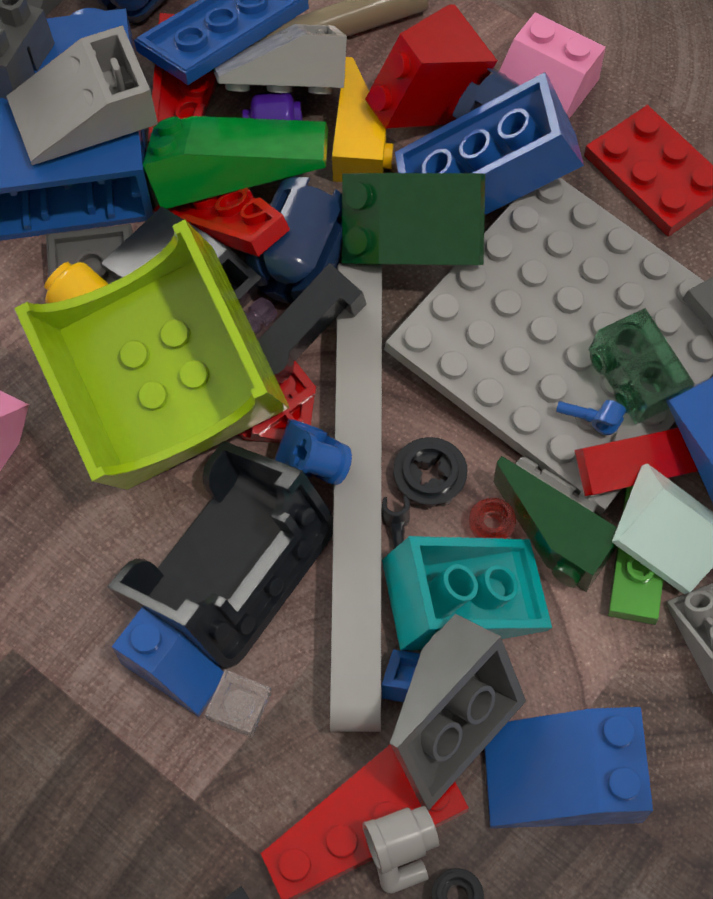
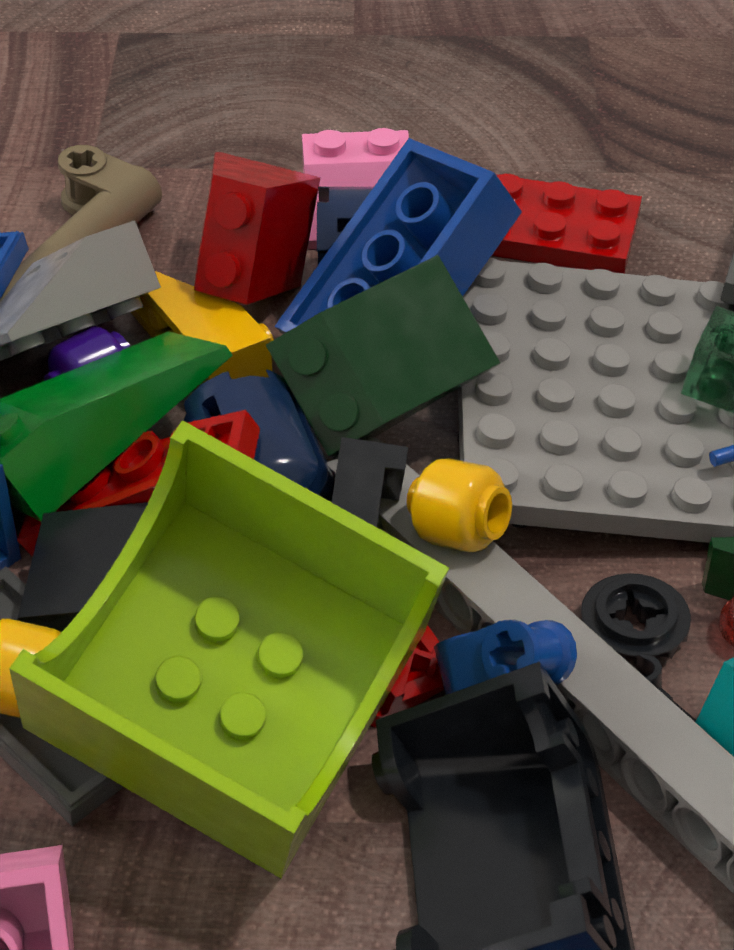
camera: 40 degrees left, 20 degrees down
(368, 344) = (459, 505): none -> yellow head

